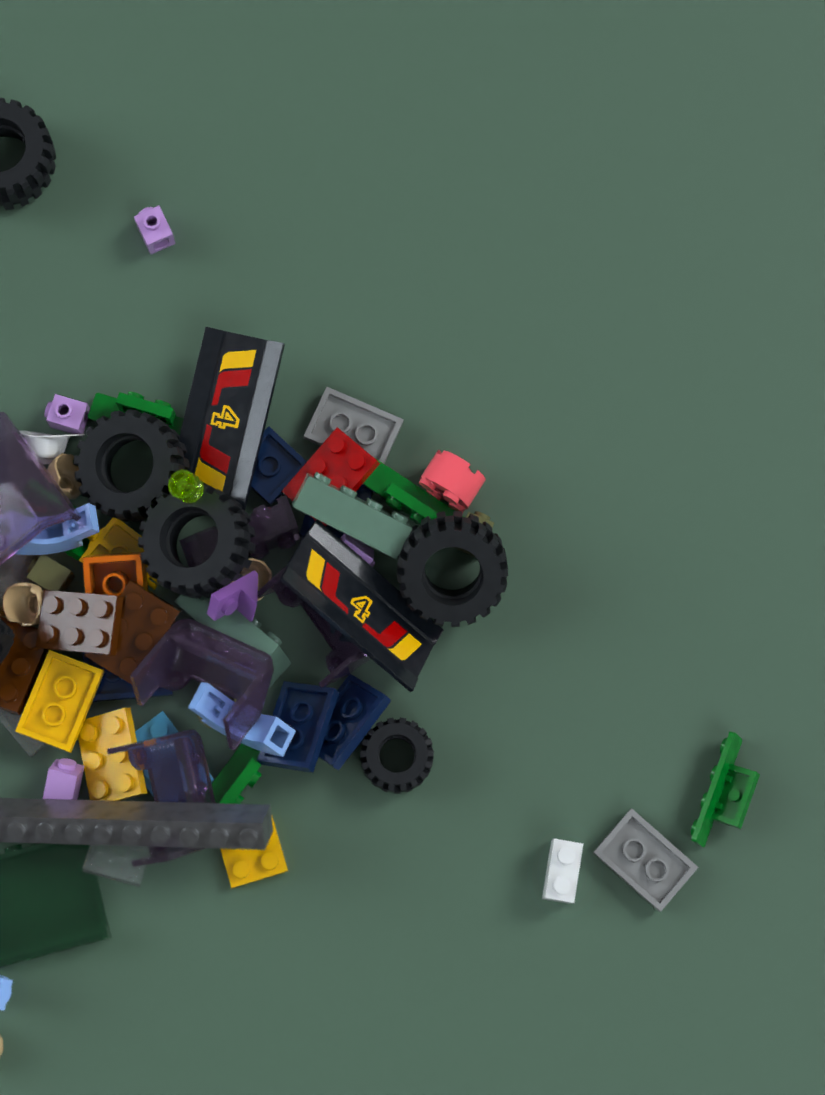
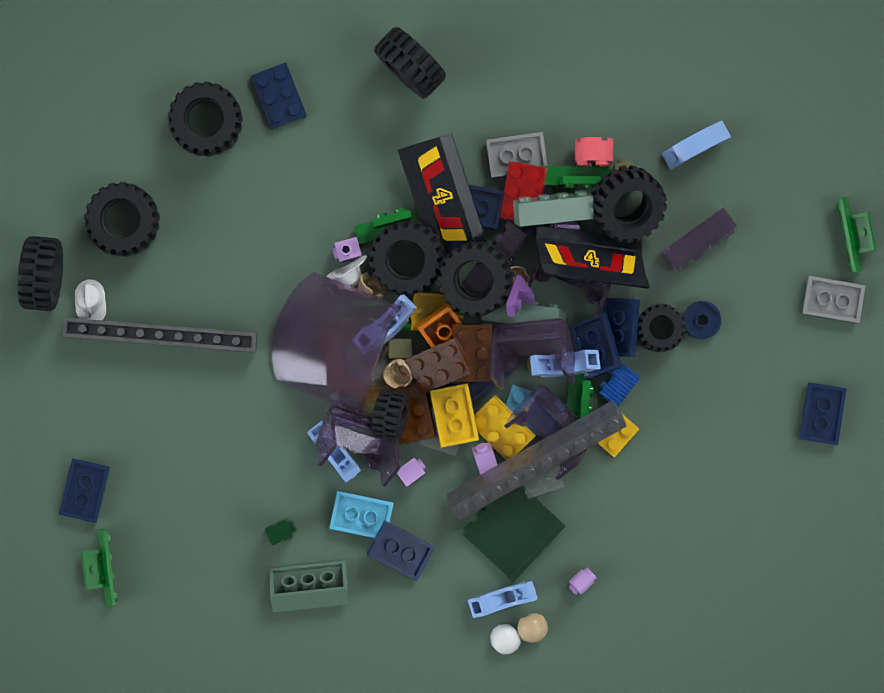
camera: 30 degrees left, 10 degrees up
(83, 1026) = (582, 581): none -> lavender brick
(110, 185) = (278, 96): none -> dark blue plate
(154, 229) = (323, 107): lavender brick -> none
(180, 482) = (450, 253): clear neon green wheel -> none
(290, 230) = (410, 62): none -> black tyre
(296, 796) = (618, 385): none -> blue brick
(465, 765) = (712, 317): none -> dark blue plate
(515, 674) = (698, 239): none -> clear purple wedge
(540, 1002) = (822, 413): none -> dark blue plate
(562, 871) = (792, 334): white brick -> none
(587, 549) = (696, 144): none -> light blue arch

